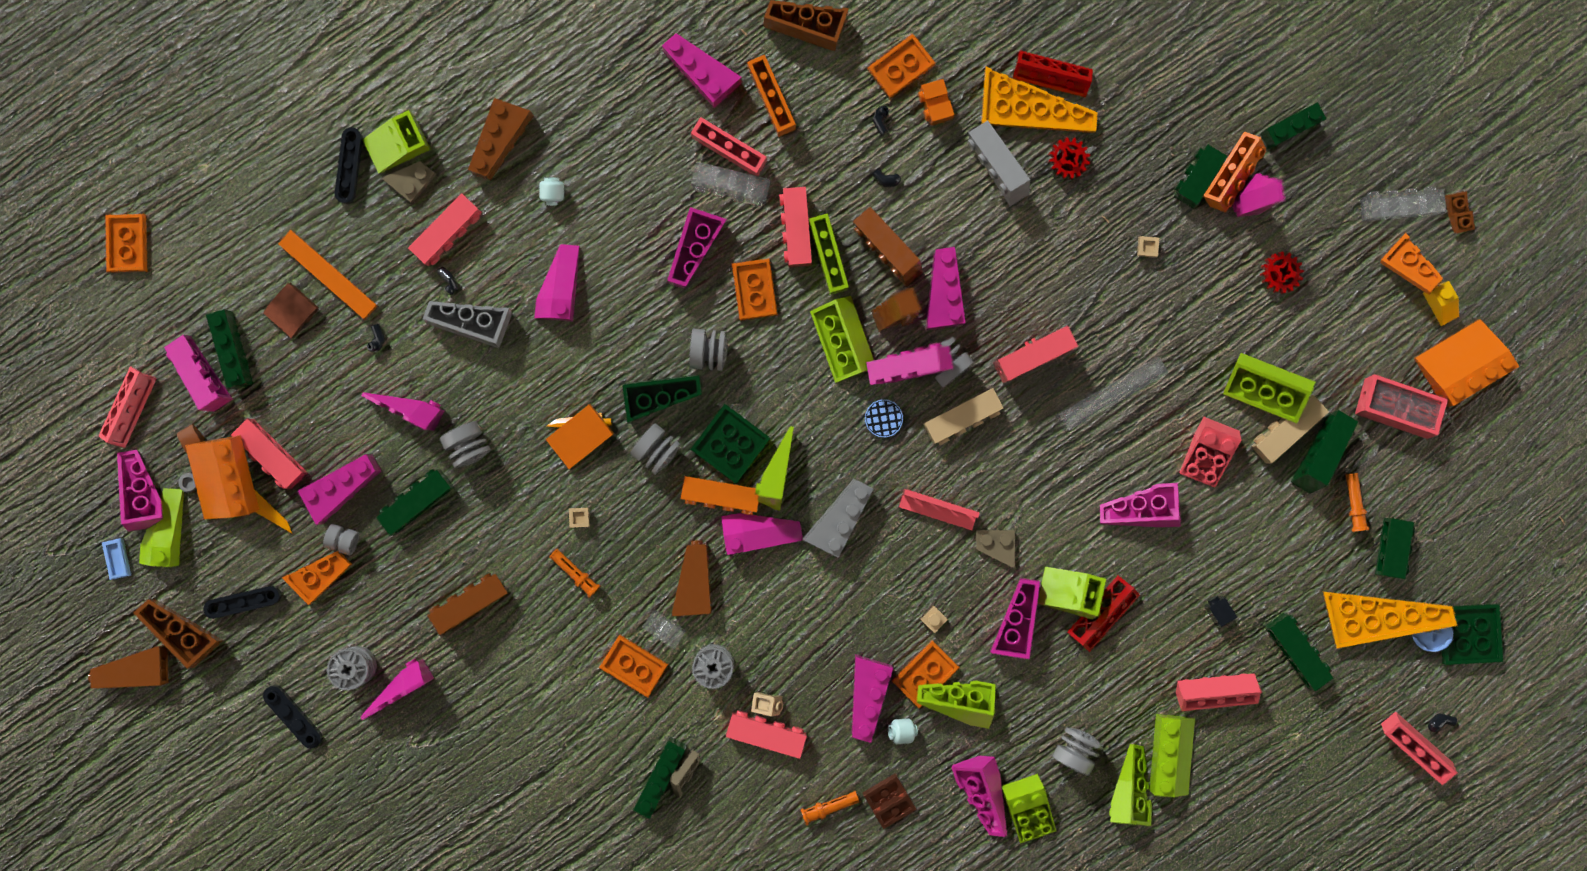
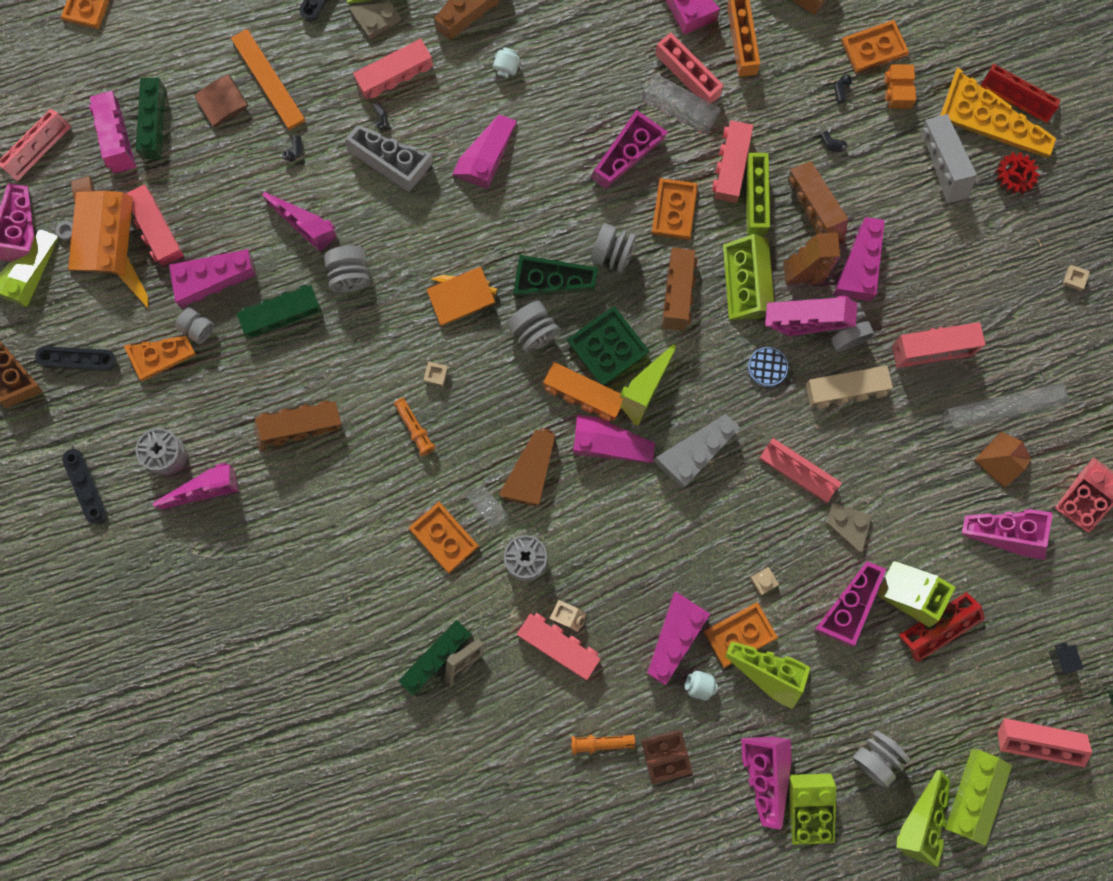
camera: 15 degrees right, 10 degrees down
(780, 369) = (678, 289): none -> dark orange wedge
(1122, 441) = (1004, 458): none -> dark orange slope

